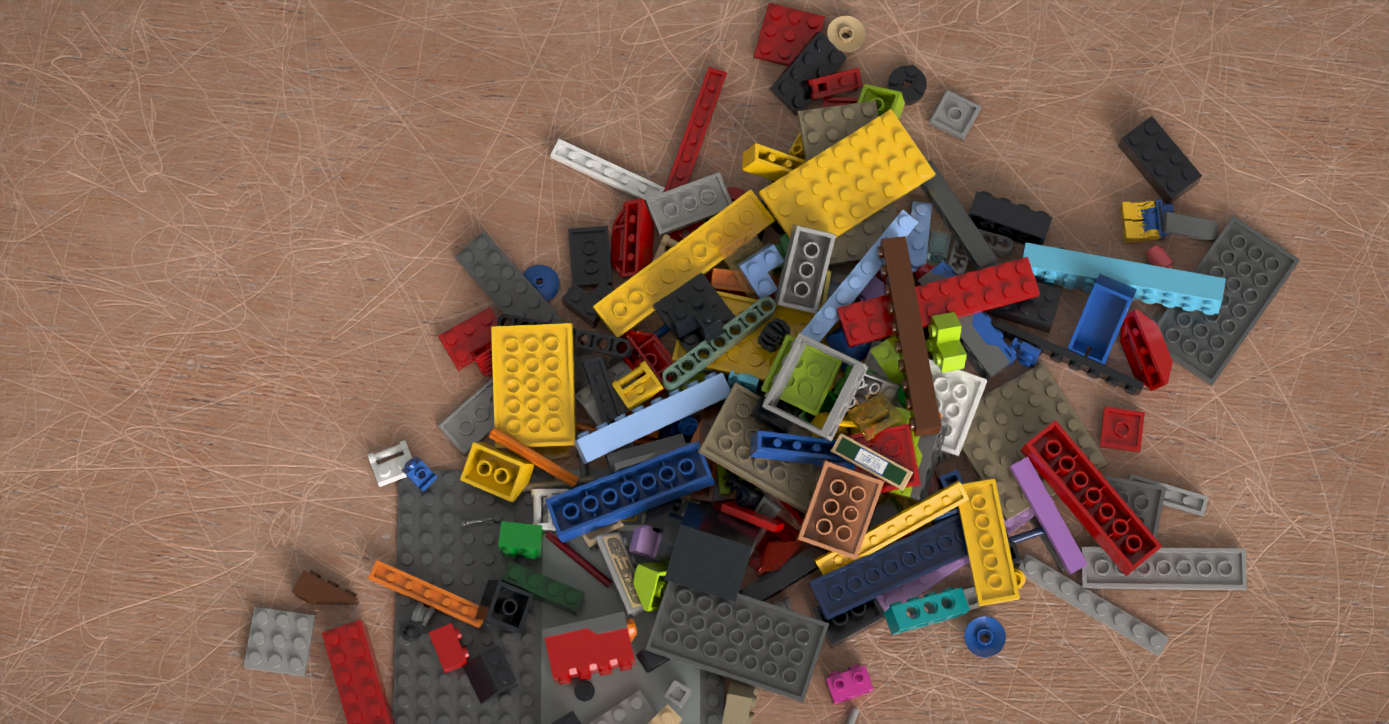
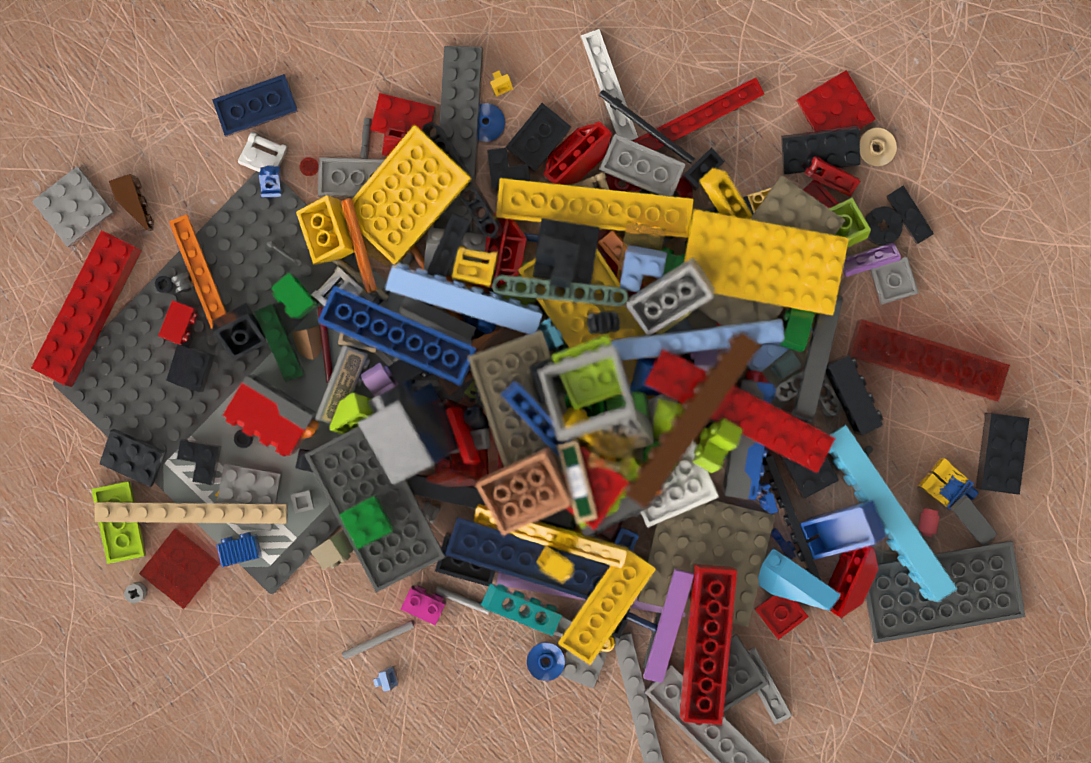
camera: 40 degrees right, 15 degrees up
(351, 432) = (255, 105): none -> dark blue plate
(436, 439) = (309, 166): none -> clear red plate
(459, 378) = (365, 138): none -> dark grey wheel
(524, 244) = (501, 84): none -> yellow tile
(563, 569) = (308, 342): none -> medium nougat brick
(625, 178) = (616, 104): none -> black bar
(734, 157) = (702, 167): none -> black brick
(743, 650) = (366, 521): none -> green brick
(876, 653) = (461, 599): none -> light grey bar
(916, 540) = (555, 564): none -> yellow brick
(921, 209) = (797, 328): none -> green brick
(922, 59) = (910, 214): none -> black plate
(923, 114) = (870, 259): none -> medium lavender tile
(1016, 615) = (580, 671): none -> light grey plate
(1038, 145) = (928, 360): none -> clear red brick
(1075, 377) = (786, 547): none -> clear blue plate
(1102, 395) = (790, 581): none -> dark azure wedge

